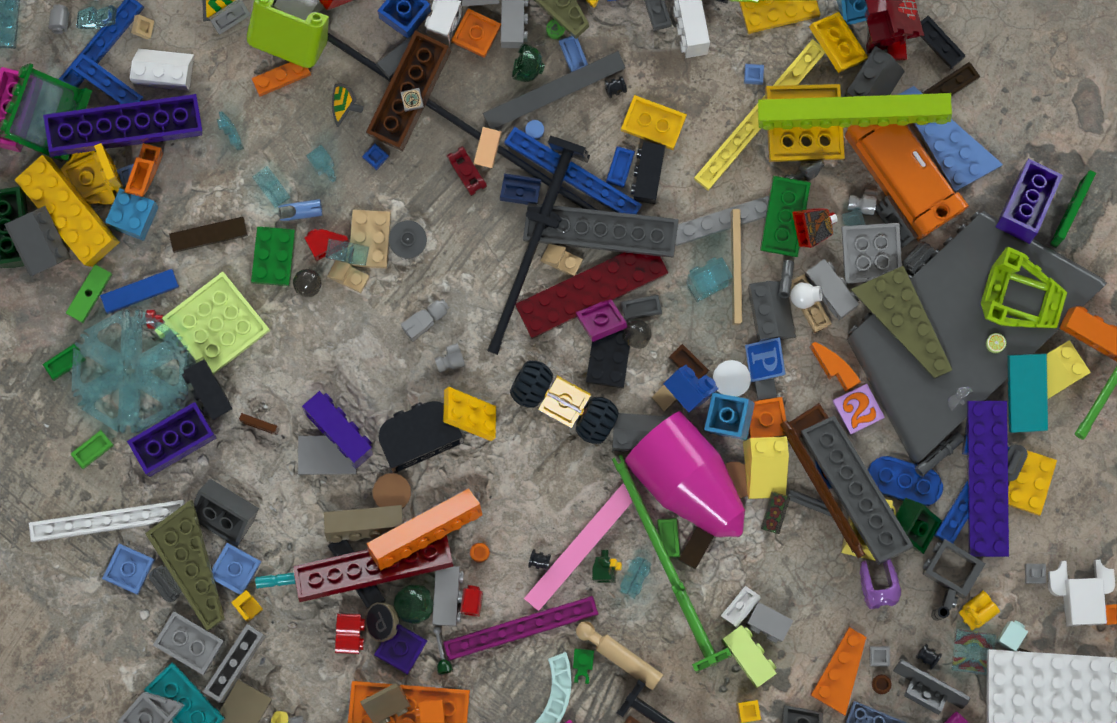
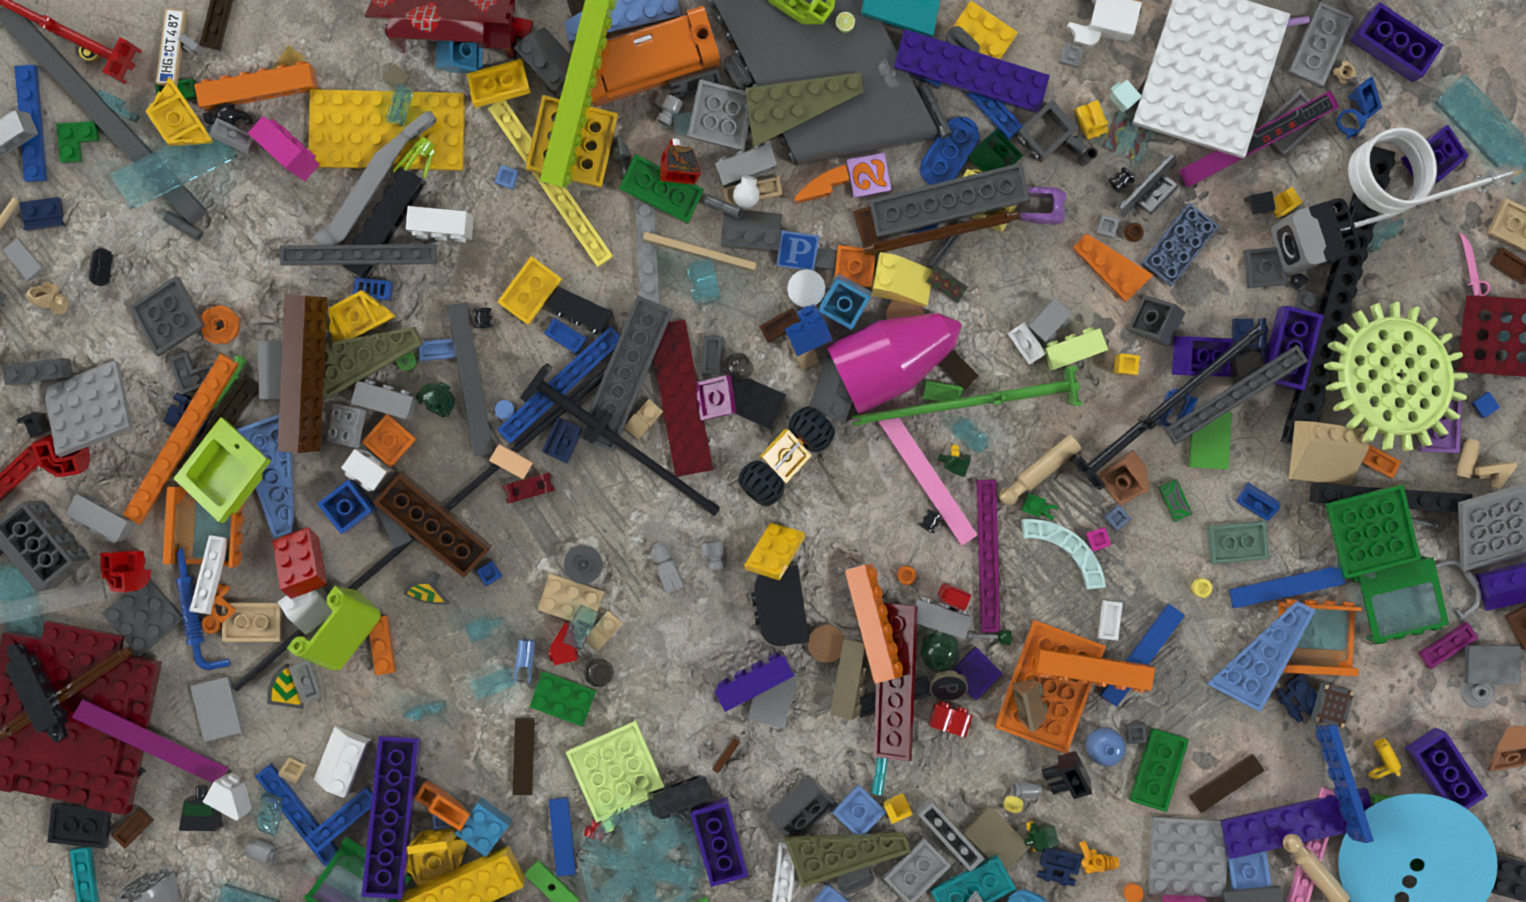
camera: 70 degrees left, 10 degrees up
(412, 99) = (444, 524): tile -> none

